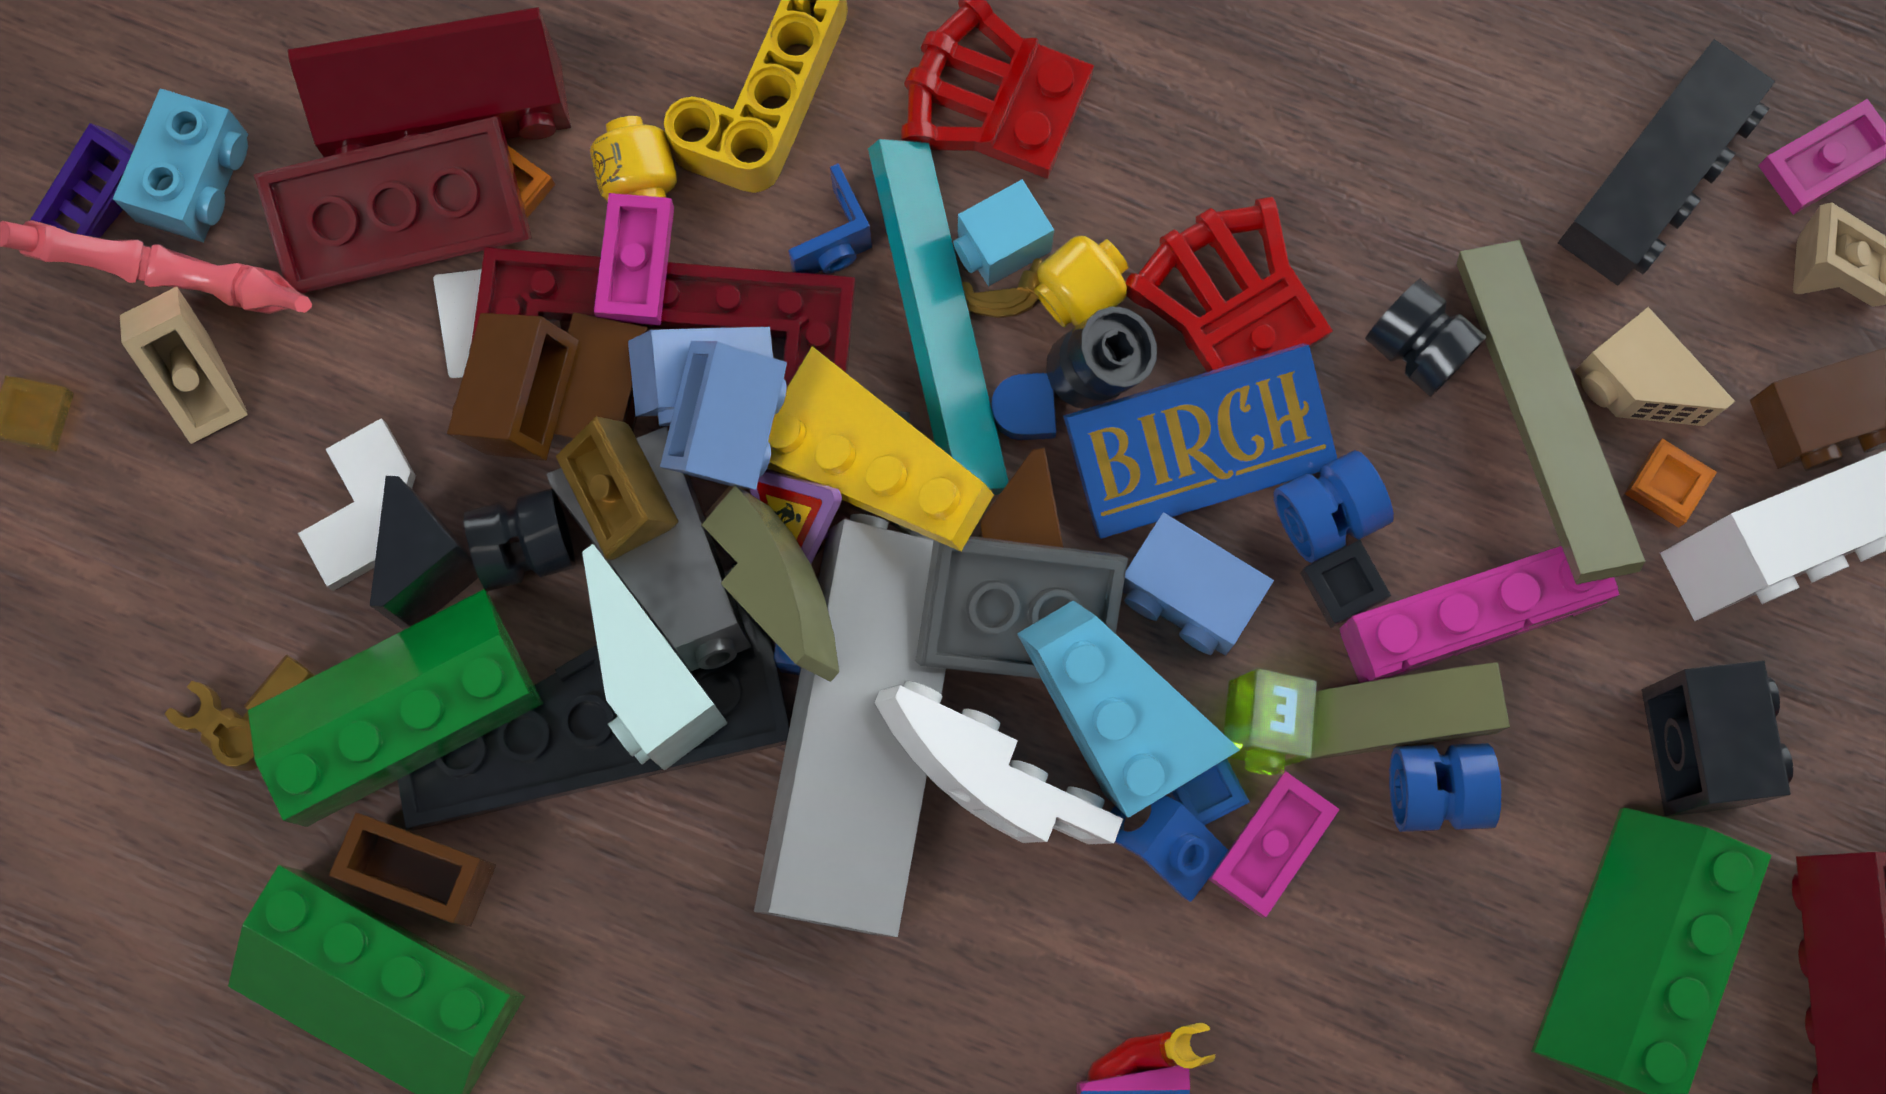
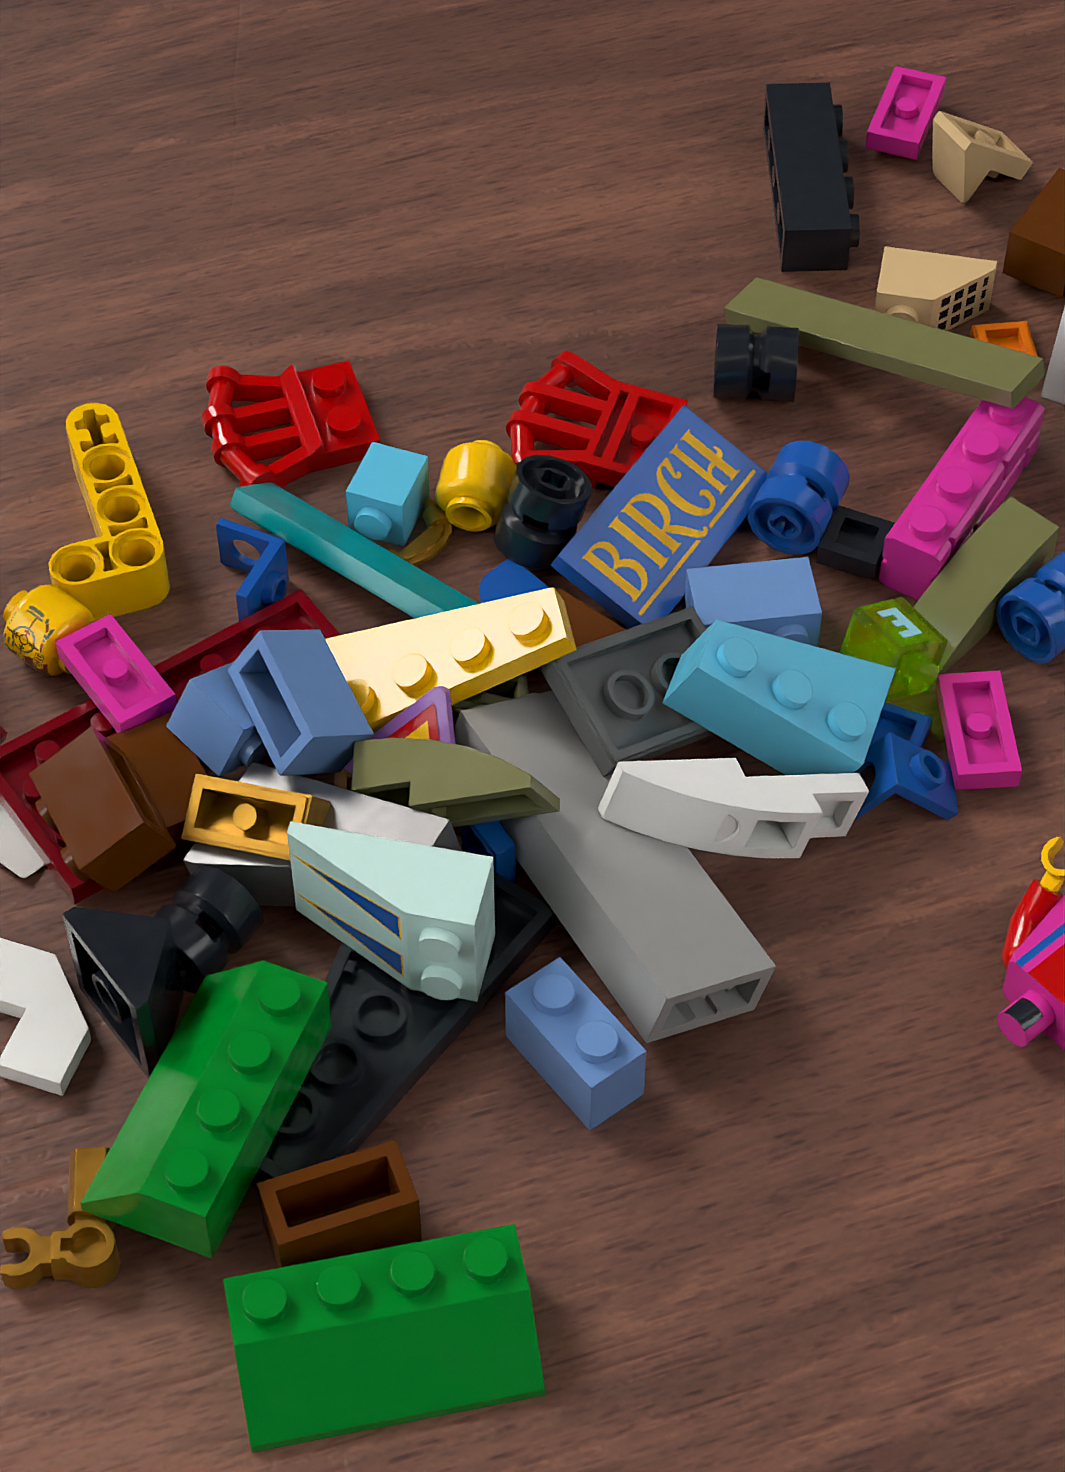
camera: 40 degrees left, 25 degrees down
(702, 866) = (575, 1043): none -> medium blue piece

